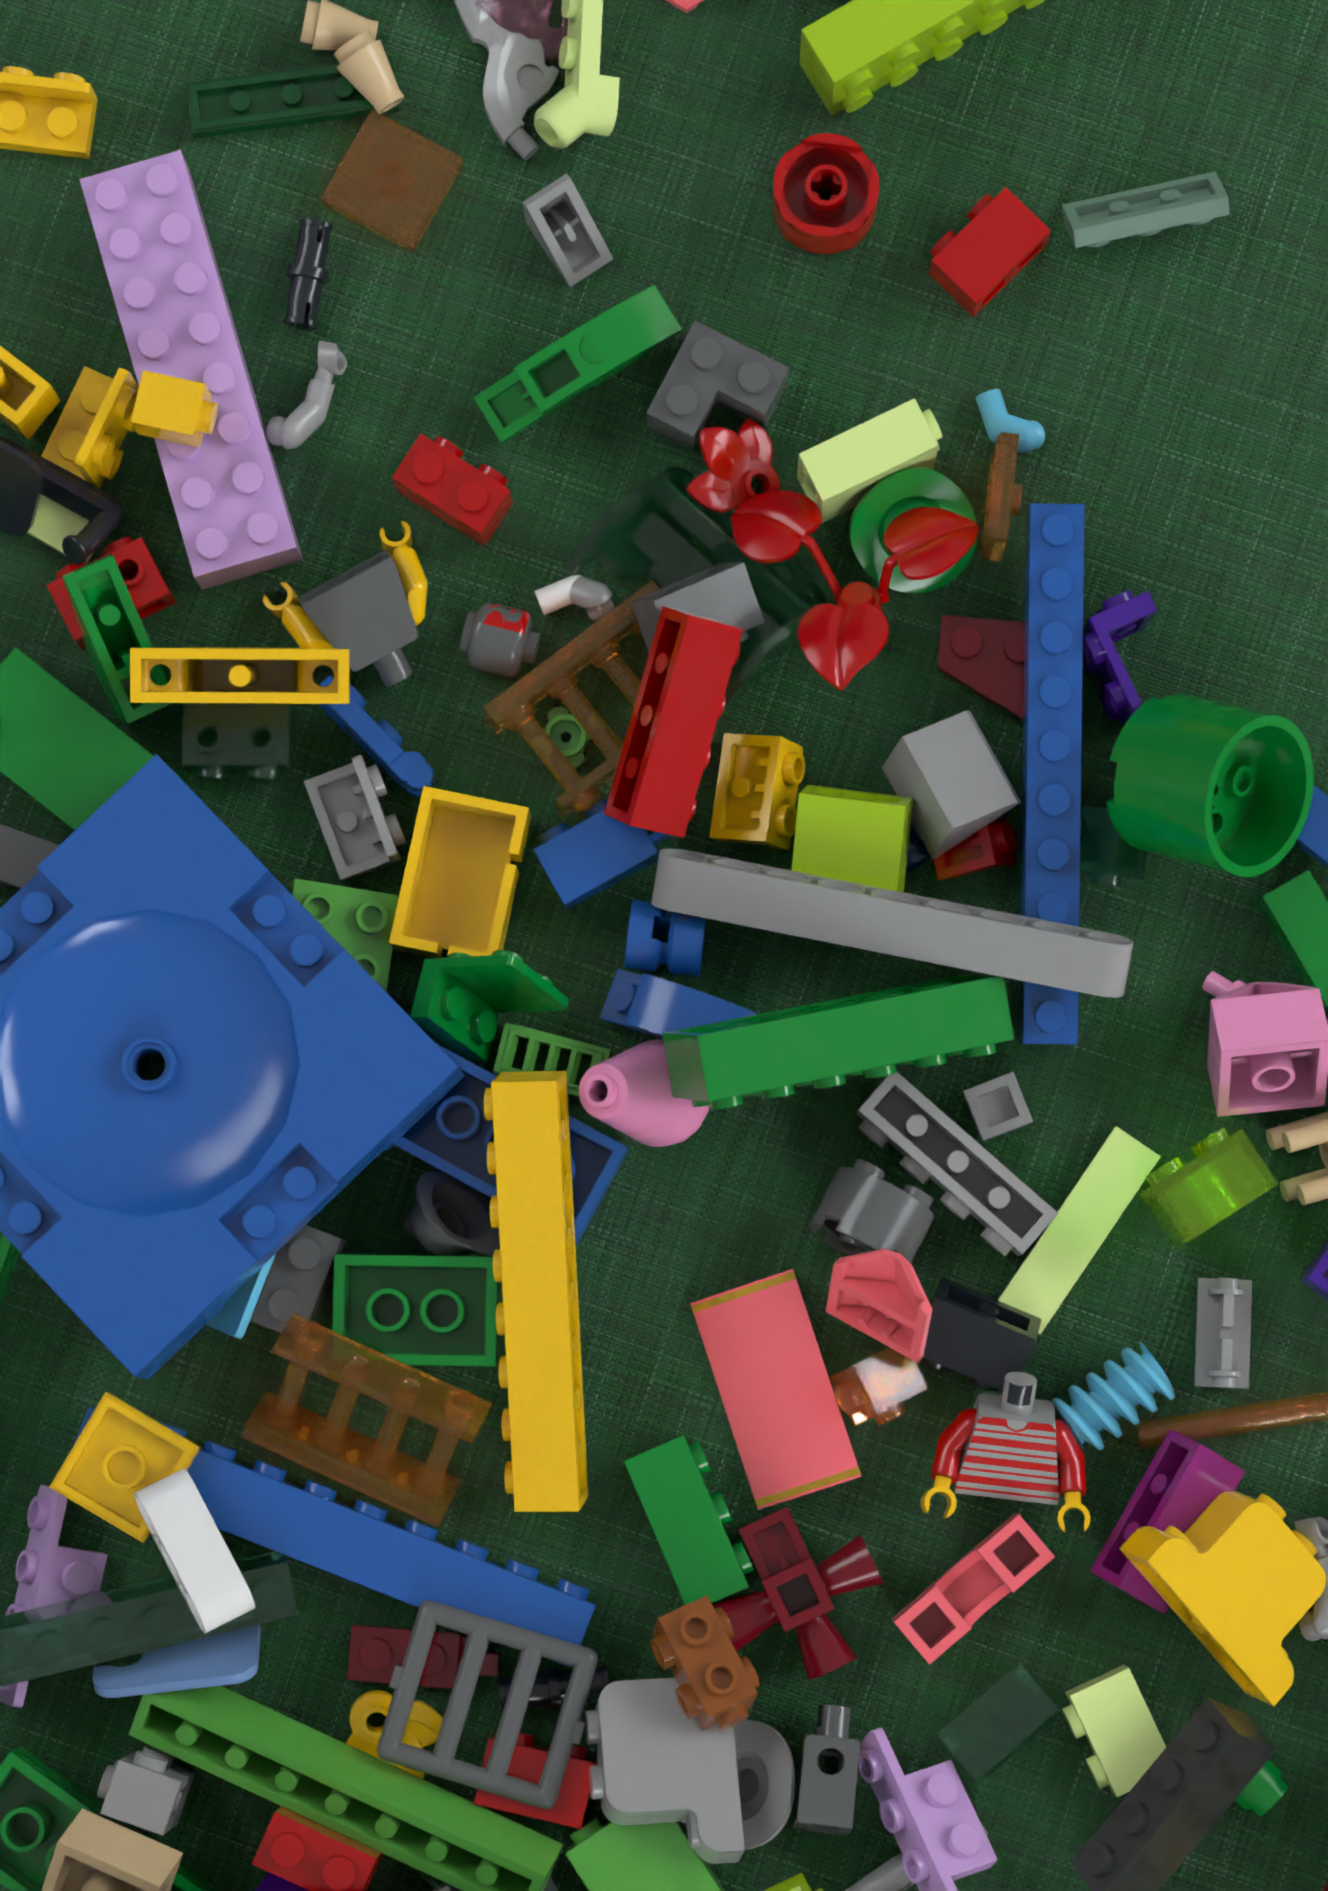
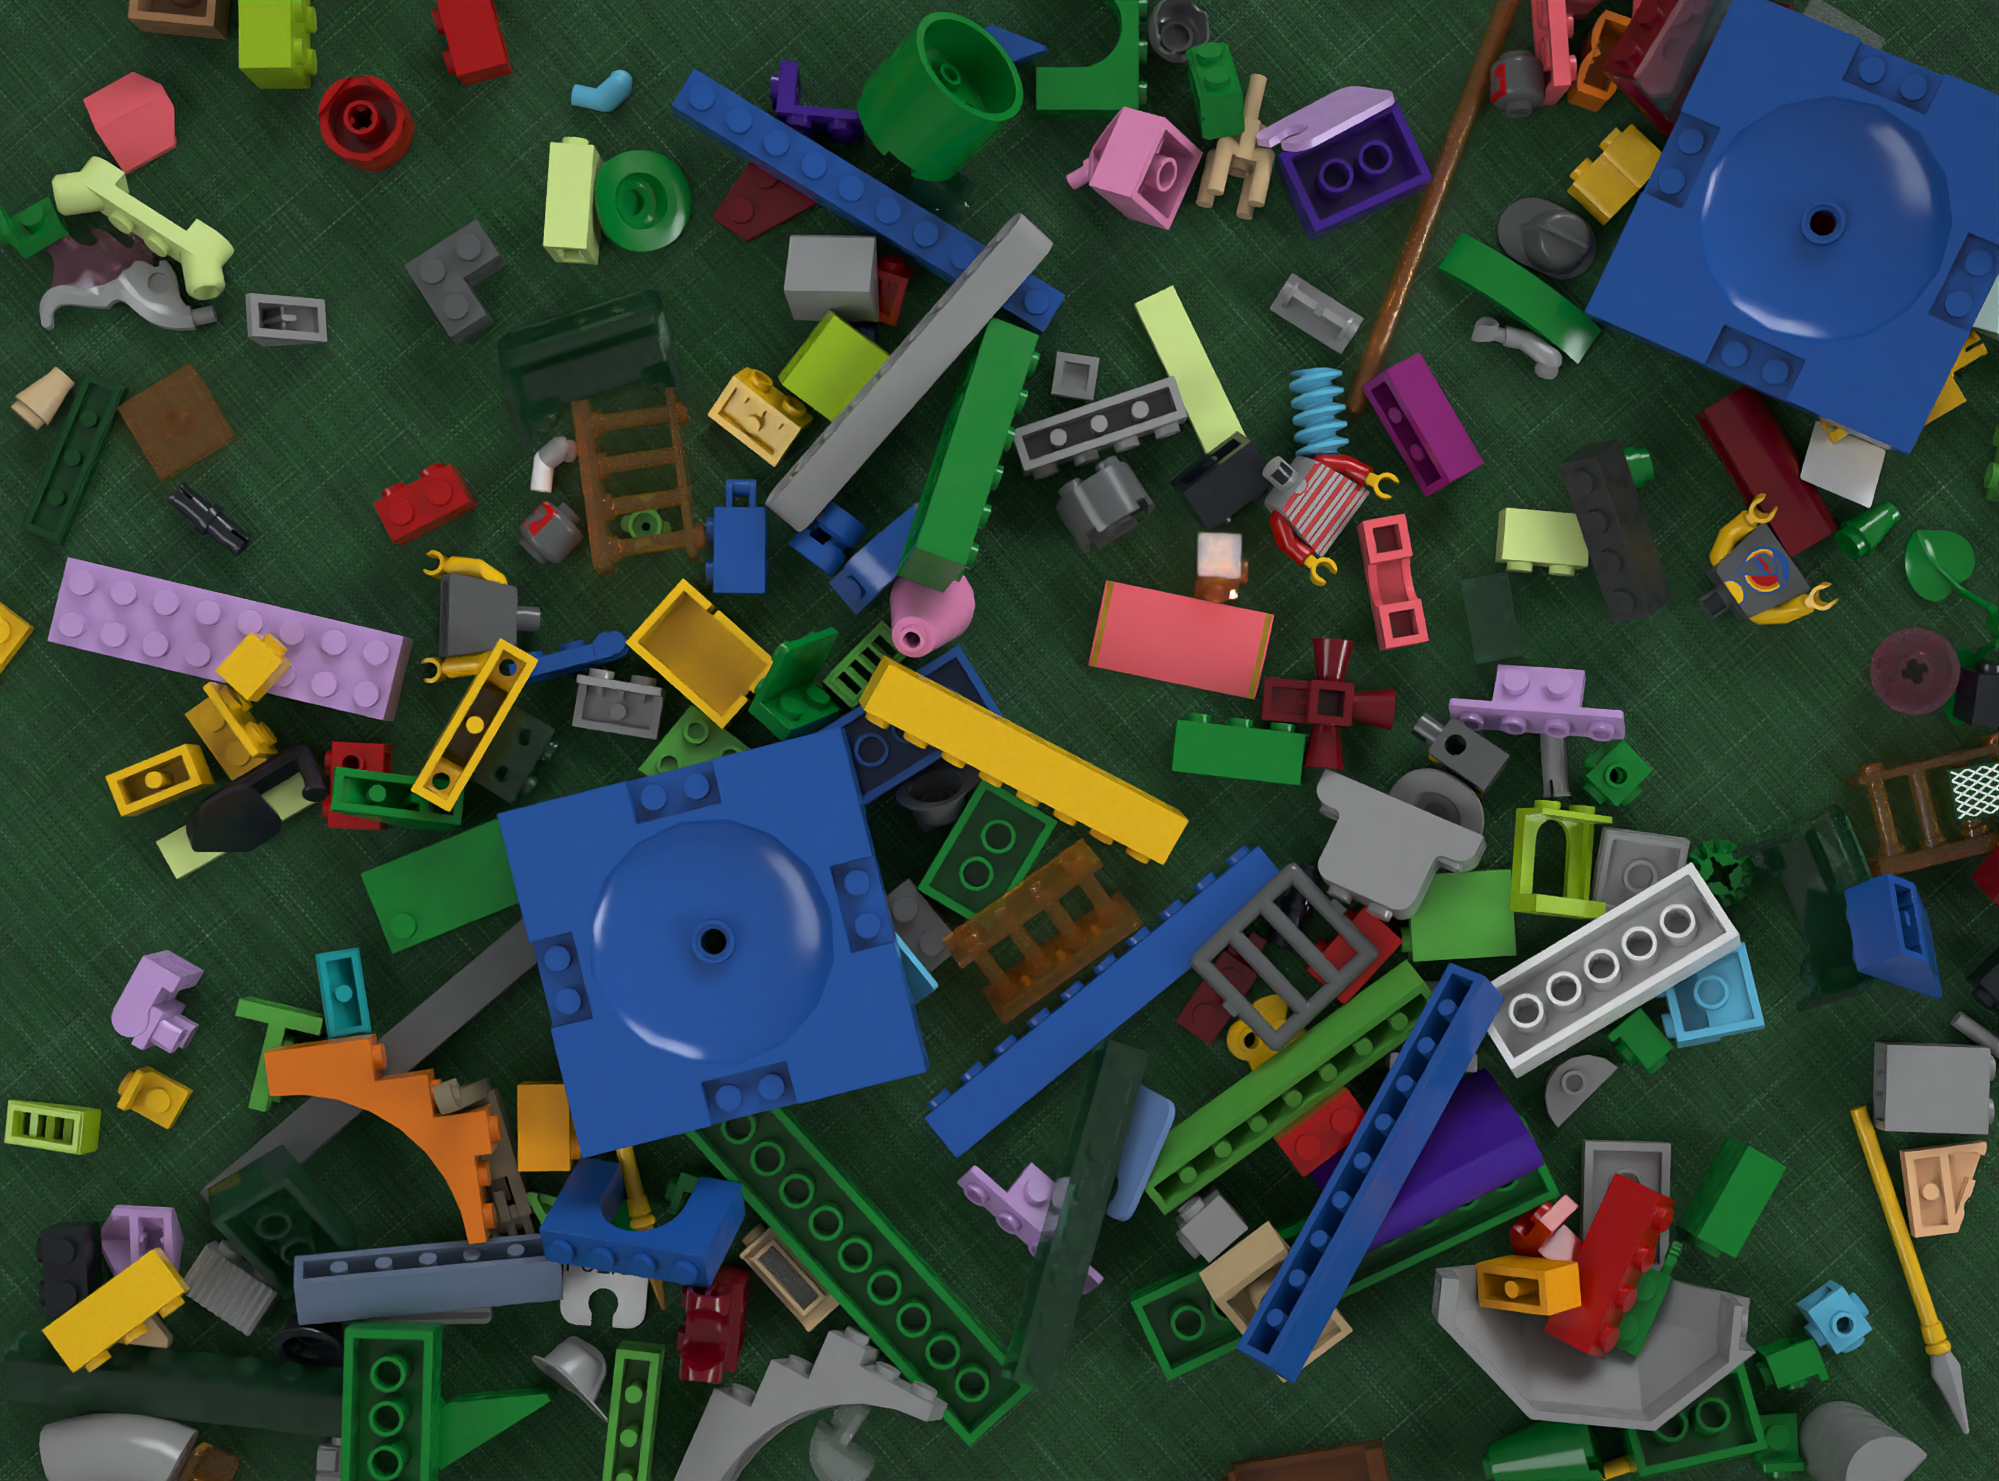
camera: 75 degrees left, 5 degrees up
(118, 1456) = (980, 1115): yellow tile -> none
(194, 1550) = (1067, 1098): white beam -> none
(313, 410) = (311, 572): light grey arm -> none
(369, 71) = (88, 392): tan cone -> none
(577, 362) = (385, 366): green slope -> none
(673, 722) = (682, 442): red brick -> none
(711, 1676) = (1343, 792): dark orange brick -> none
(715, 593) = (614, 382): brick -> none
(731, 466) = (520, 298): red plate -> none
(849, 635) = (689, 280): red plant -> none
(882, 1299) = (1164, 529): coral slope -> none
(1002, 496) = (653, 125): clear orange plate -> none
(1208, 1187) = (1214, 264): clear neon green brick -> none
(1235, 1585) = (1492, 403): yellow brick -> none

